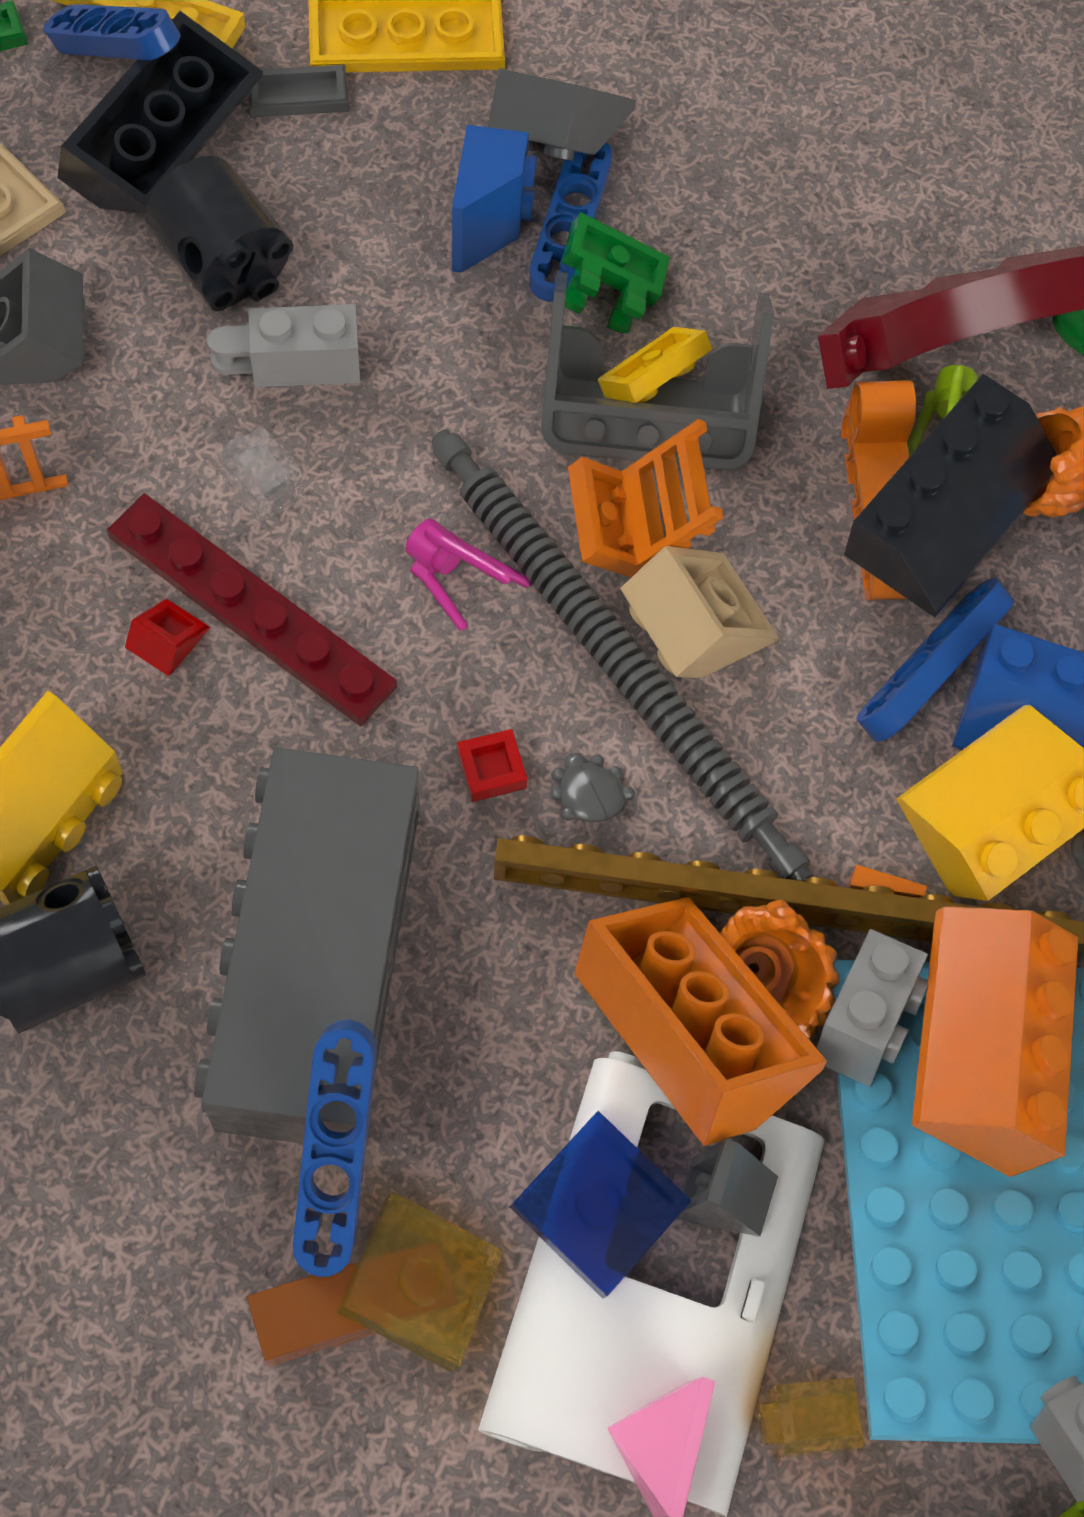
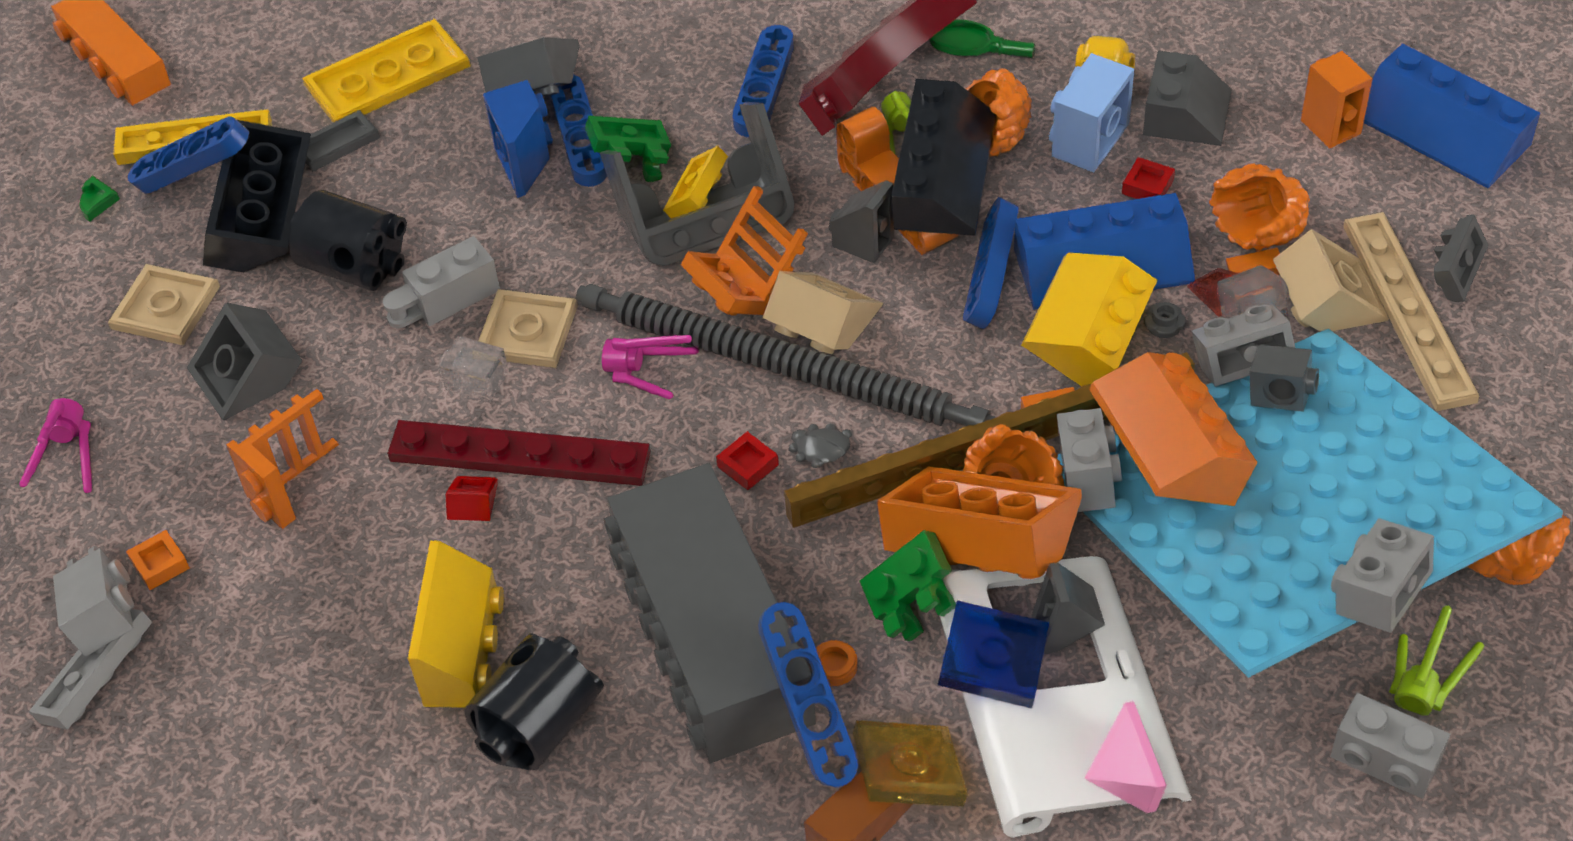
camera: 20 degrees left, 15 degrees down
(357, 449) = (529, 326): none -> tan tile
(428, 1086) = (838, 661): none -> orange tile
(569, 1033) = (905, 576): none -> green plate
(812, 1418) = (1207, 709): clear yellow brick -> none
(815, 525) = (864, 223): none -> dark grey slope
(826, 267) = (765, 81): none -> blue beam

